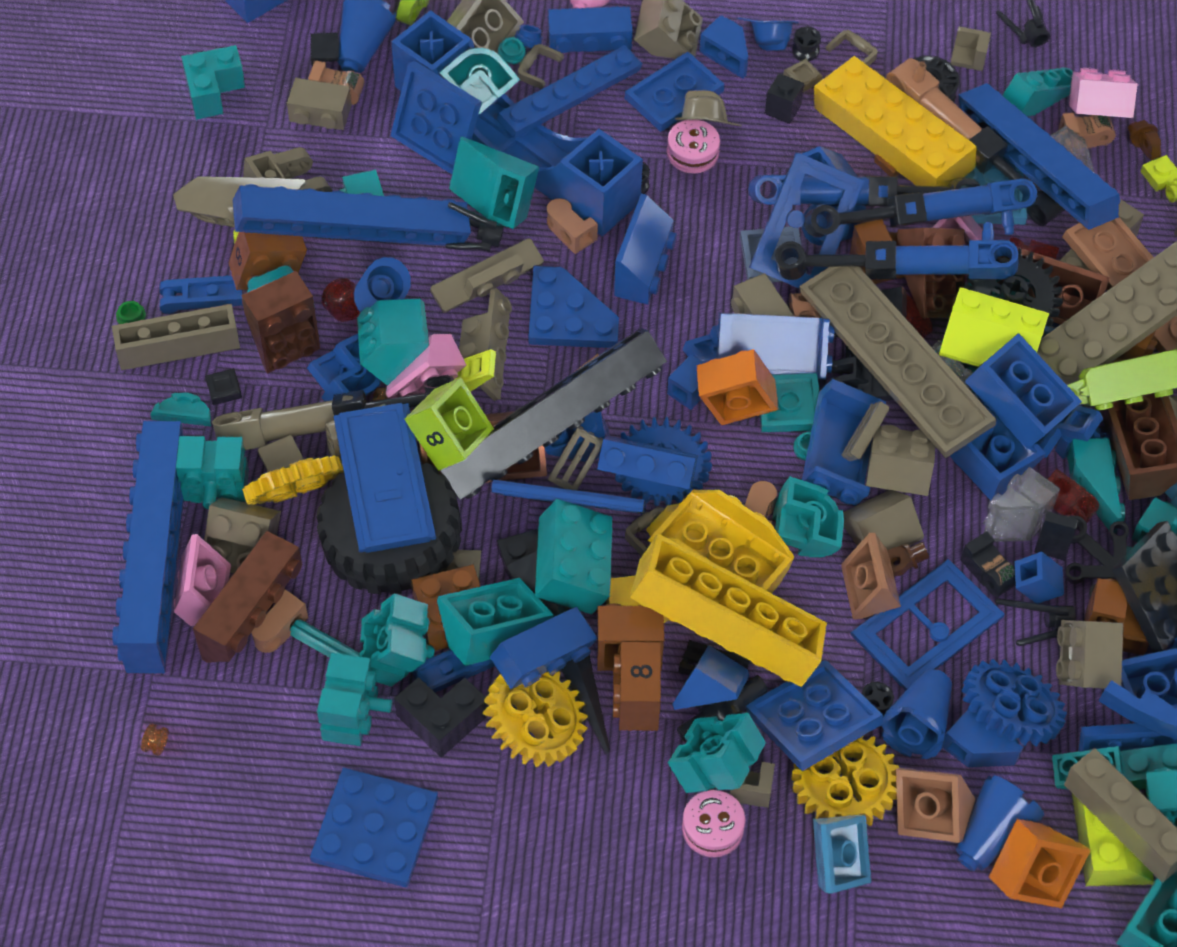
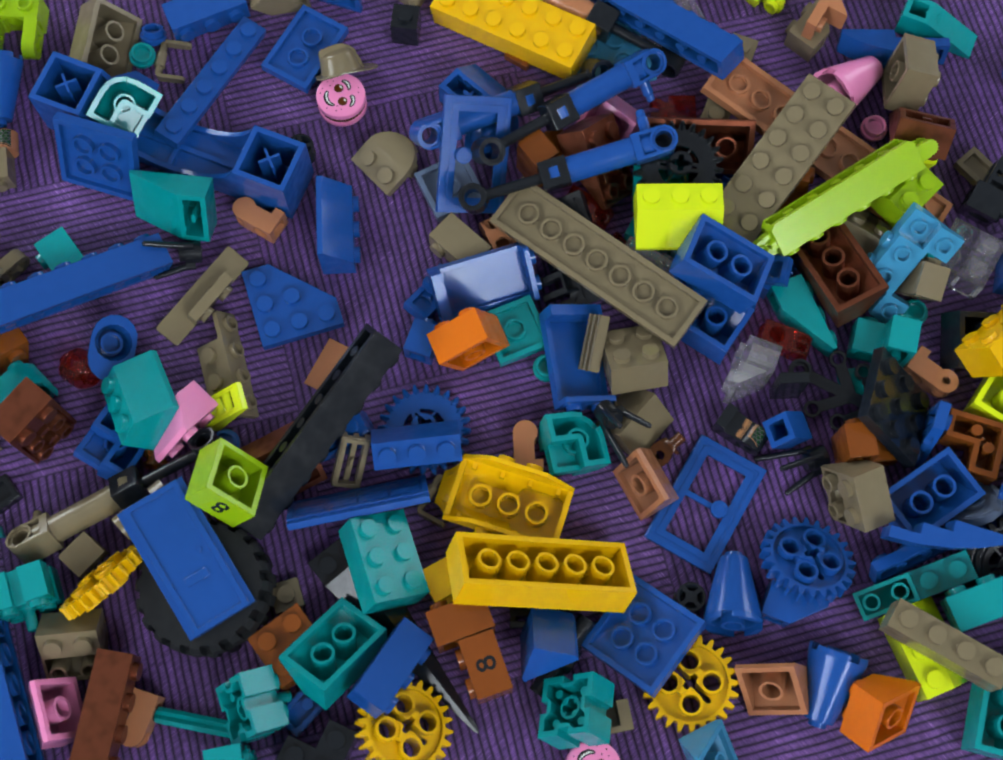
camera: 20 degrees left, 15 degrees up
(718, 212) = (387, 160): none -> dark tan slope
(857, 504) = (612, 417): none -> black plant

